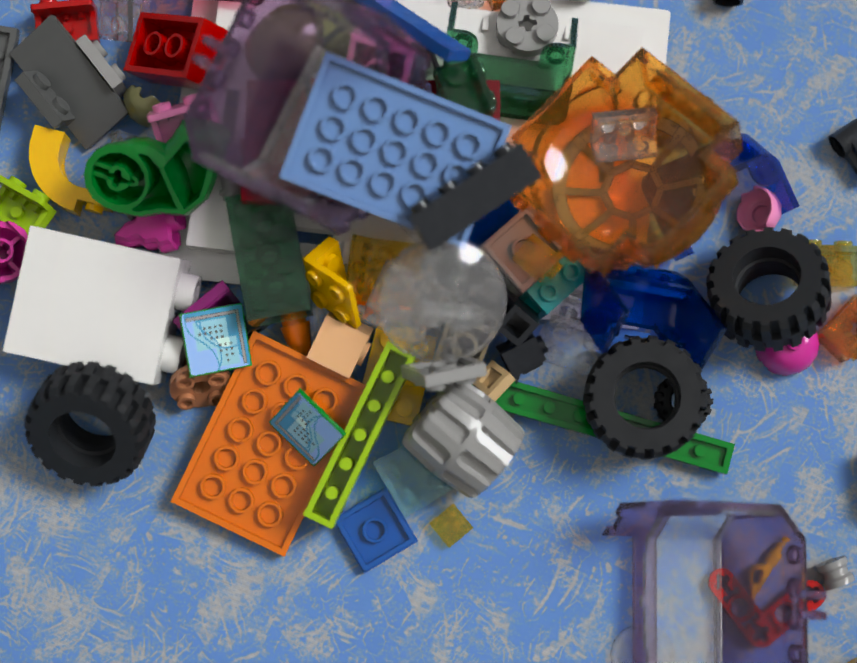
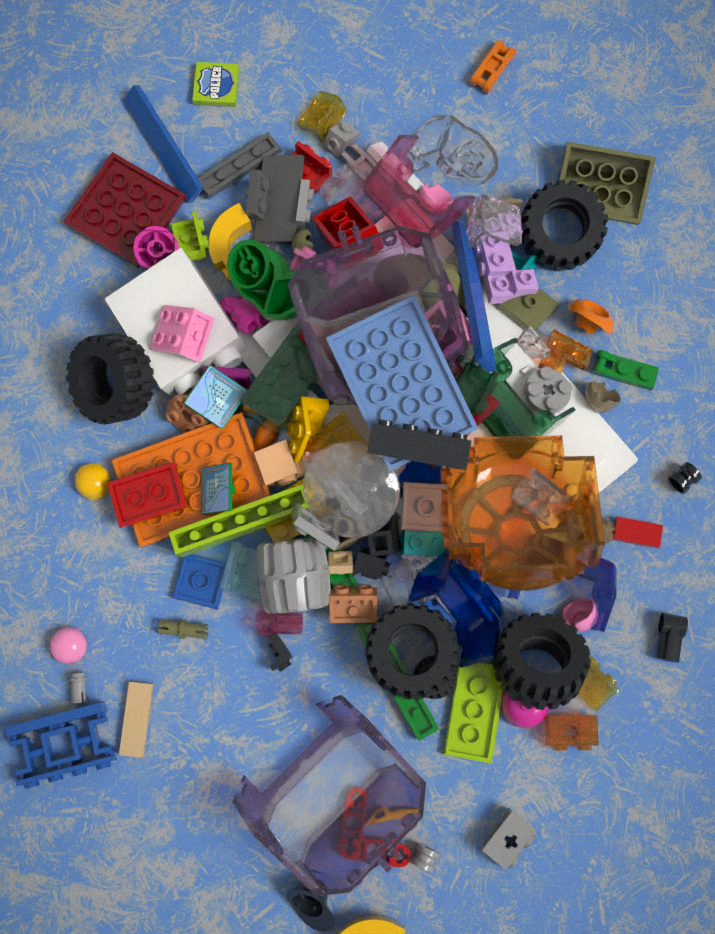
camera: 50 degrees right, 5 degrees down
(119, 309) = (182, 332): none -> bright pink bracket
(171, 540) = (92, 481): none -> yellow hair
(243, 500) = (147, 495): none -> red plate
(405, 591) = (183, 629): none -> olive pin
(451, 525) = (243, 619): clear yellow tile -> none
(490, 498) = (280, 623): none -> clear pink piece
(514, 518) = (279, 648): none -> black bracket
(538, 259) = (427, 518): clear yellow bracket -> none
(544, 407) = (353, 604): none -> nougat bracket
(735, 81) = (637, 532): none -> red tile
(752, 399) = (474, 713): none -> lime tile

